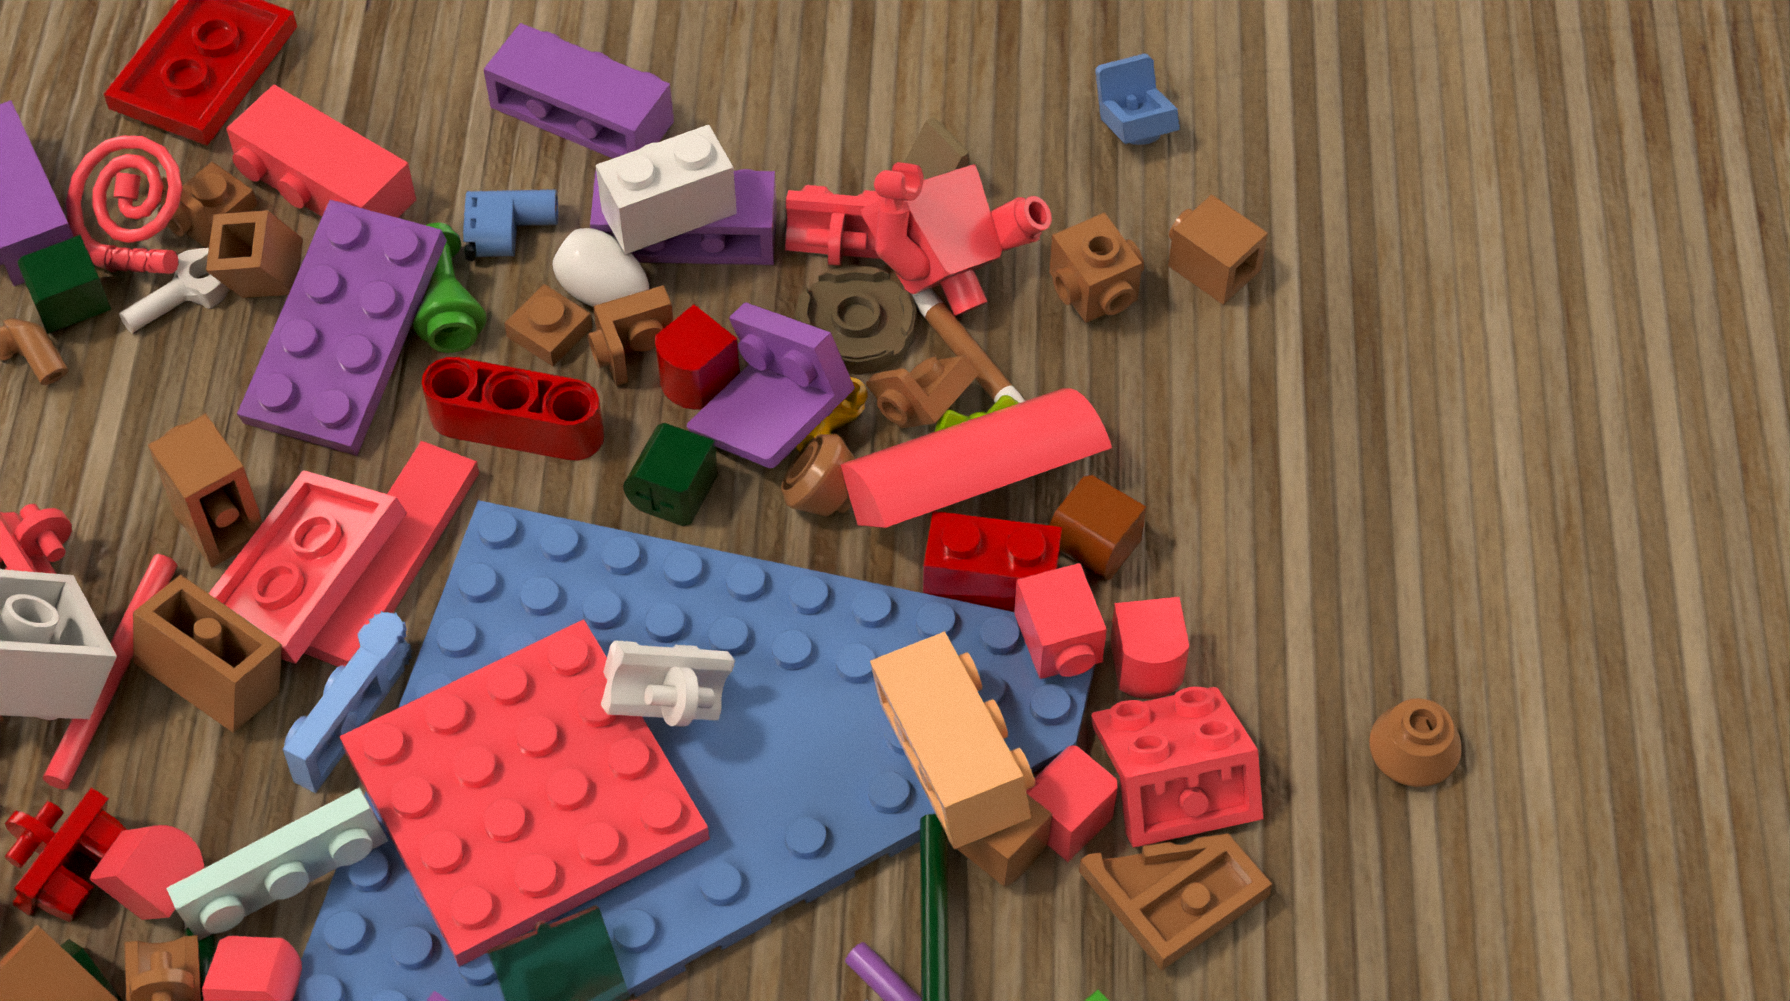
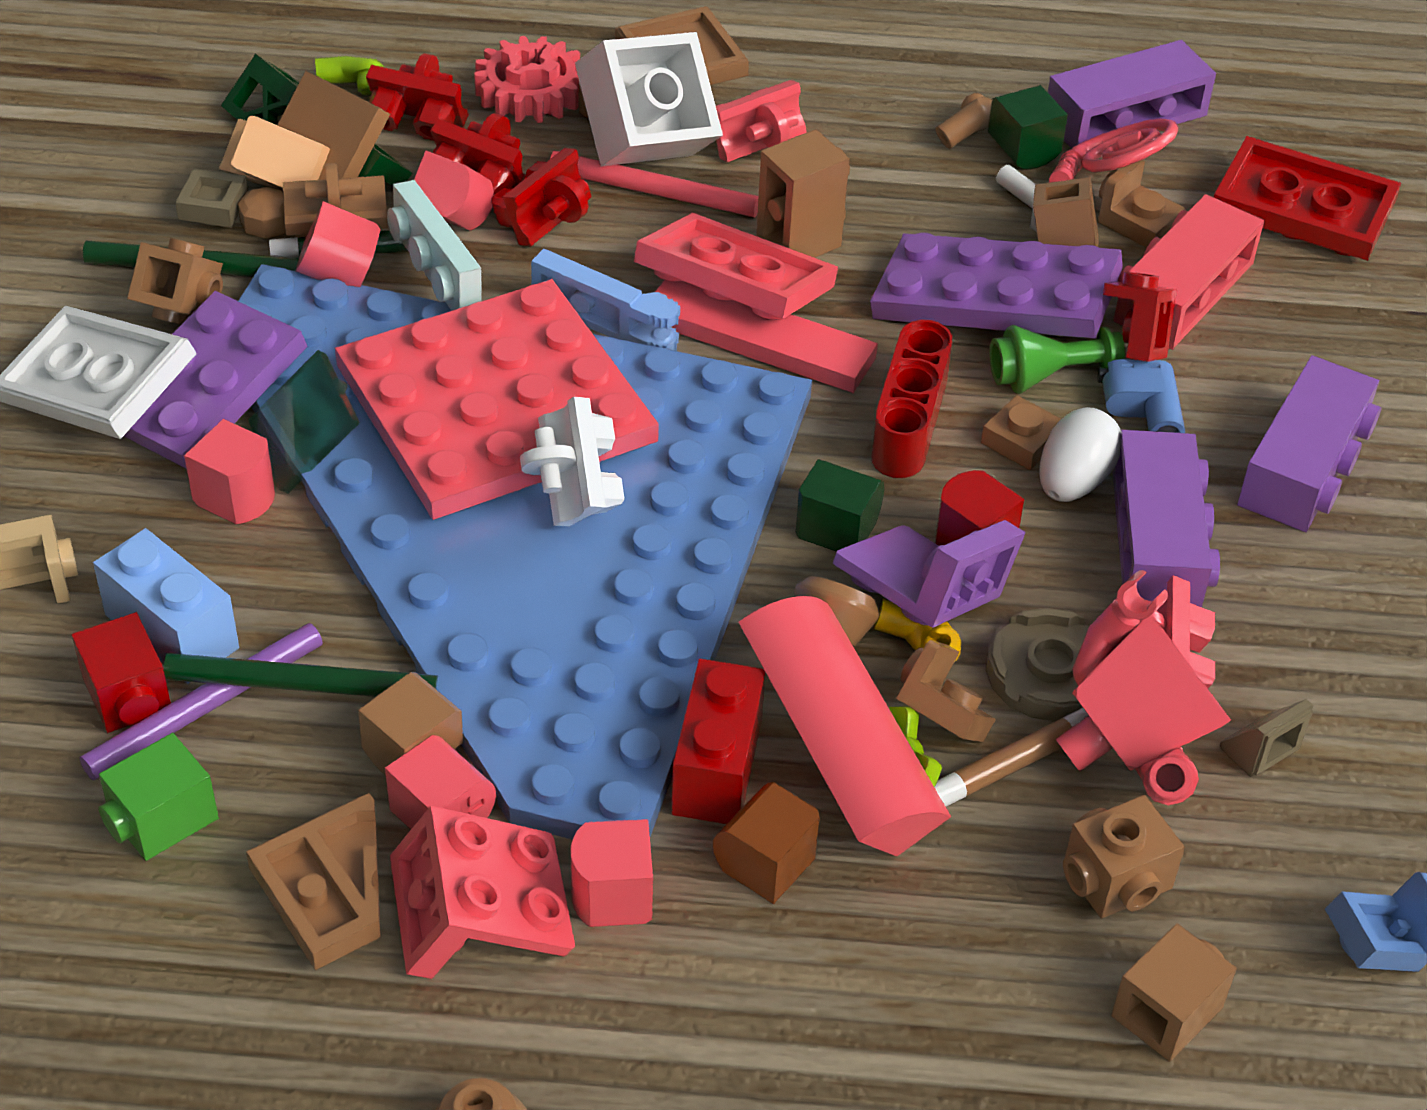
camera: 90 degrees right, 10 degrees down
(122, 762) = (544, 198): none -> red hips
(206, 653) = (641, 204): medium nougat brick -> none
(419, 190) = (1150, 321): none -> red bracket
(627, 327) = (1016, 467): medium nougat bracket -> none
(666, 189) = (1151, 460): white brick -> none
(953, 739) = (485, 658): light nougat brick -> none
(1060, 622) = (626, 769): coral brick -> none

